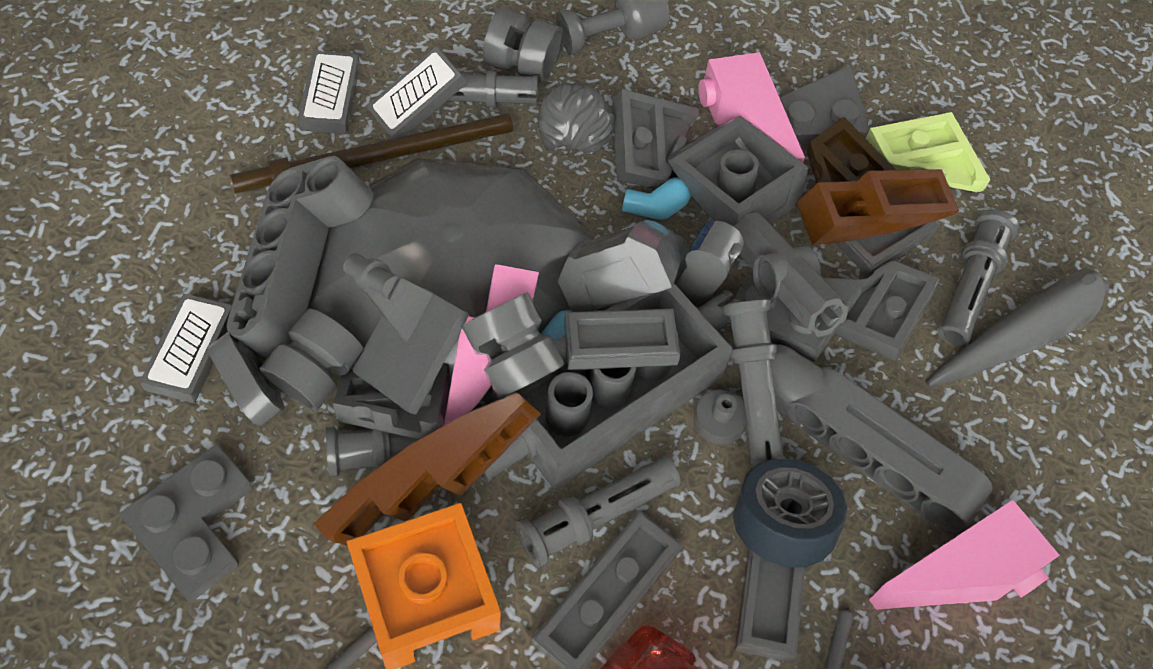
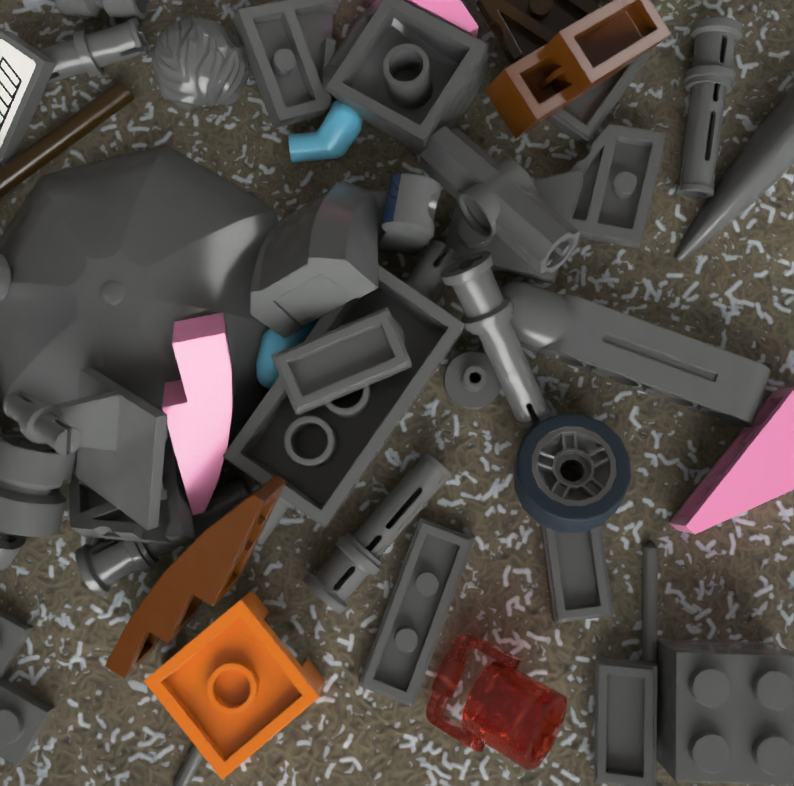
camera: 10 degrees left, 25 degrees up
(513, 345) = (236, 440): wheel -> none

